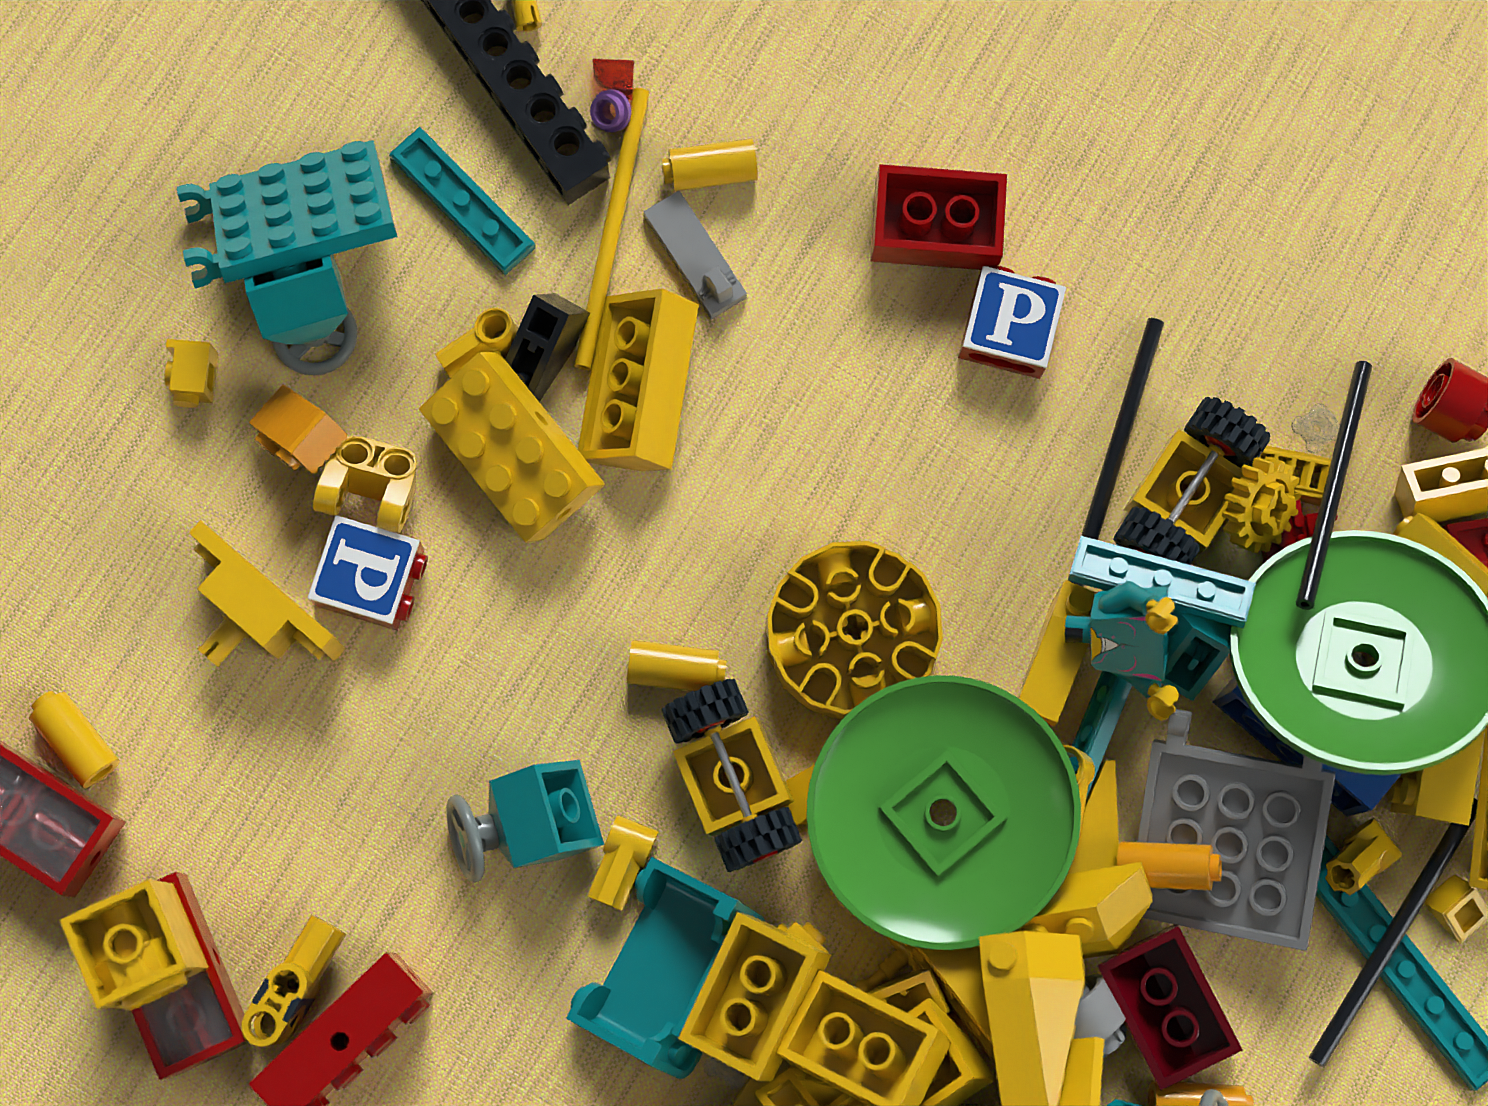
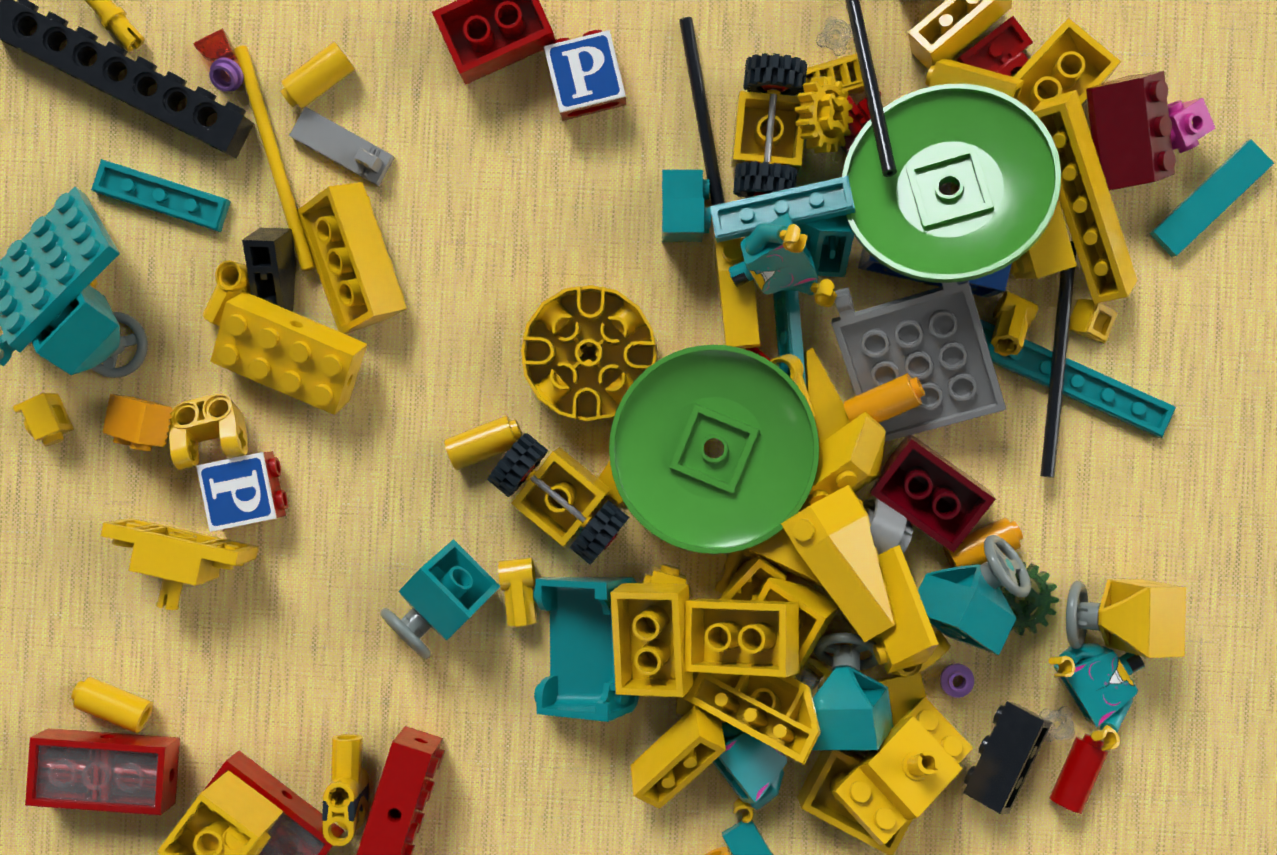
camera: 15 degrees left, 10 degrees up
(1047, 524) = (683, 206): none -> teal brick

